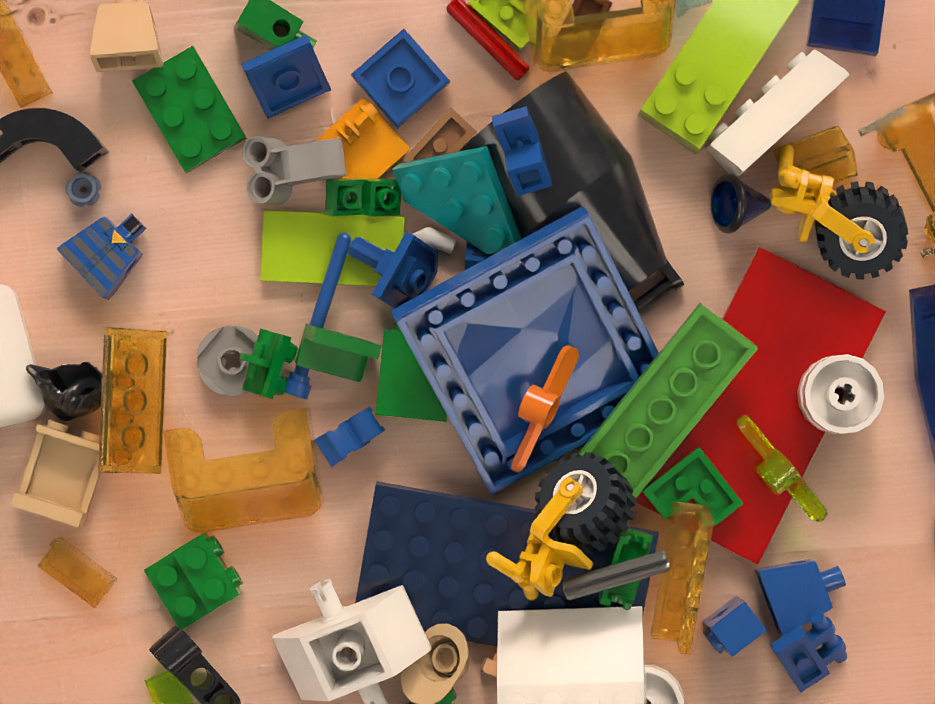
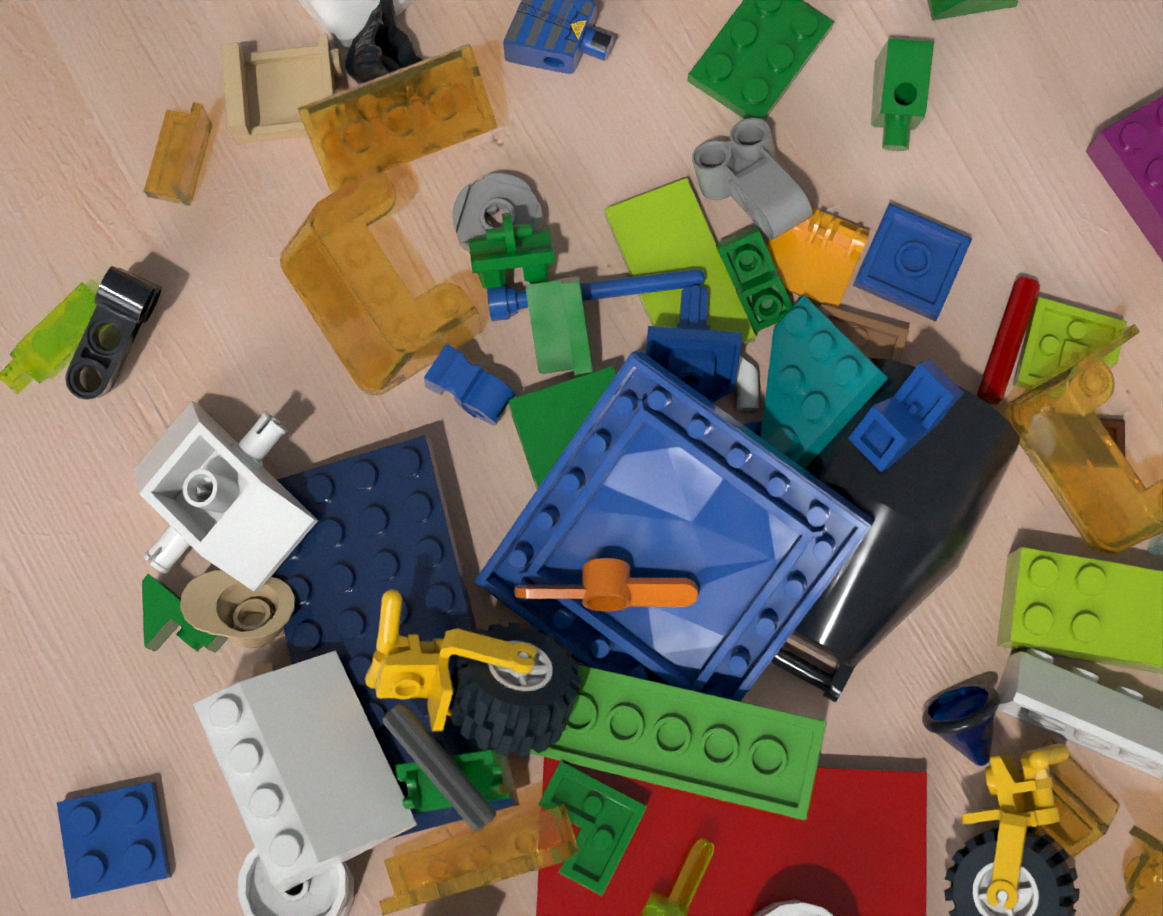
camera: 65 degrees right, 10 degrees down
(194, 580) = (224, 288): green plate -> none
(286, 76) = (851, 130): blue plate -> none

